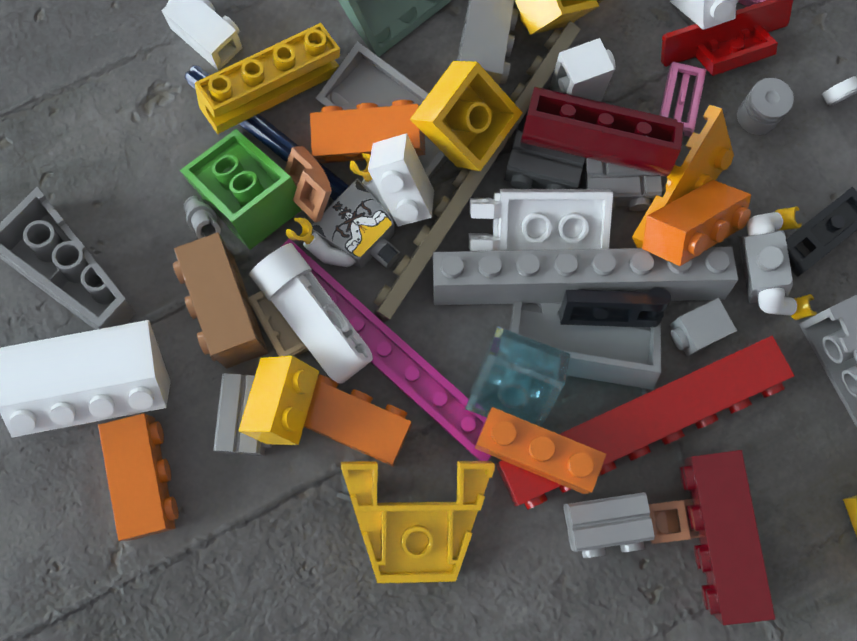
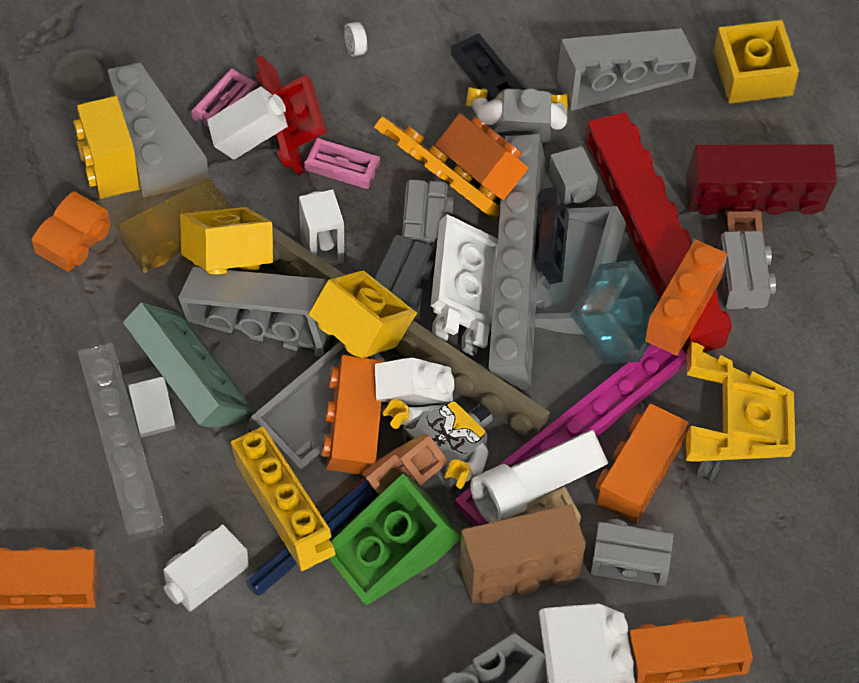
camera: 85 degrees left, 20 degrees down
(200, 217) = (430, 569): light grey pin -> none
(279, 400) = (628, 499): yellow brick -> none
(603, 132) = (389, 210): dark red brick -> none
(765, 106) = (365, 96): light grey piece -> none

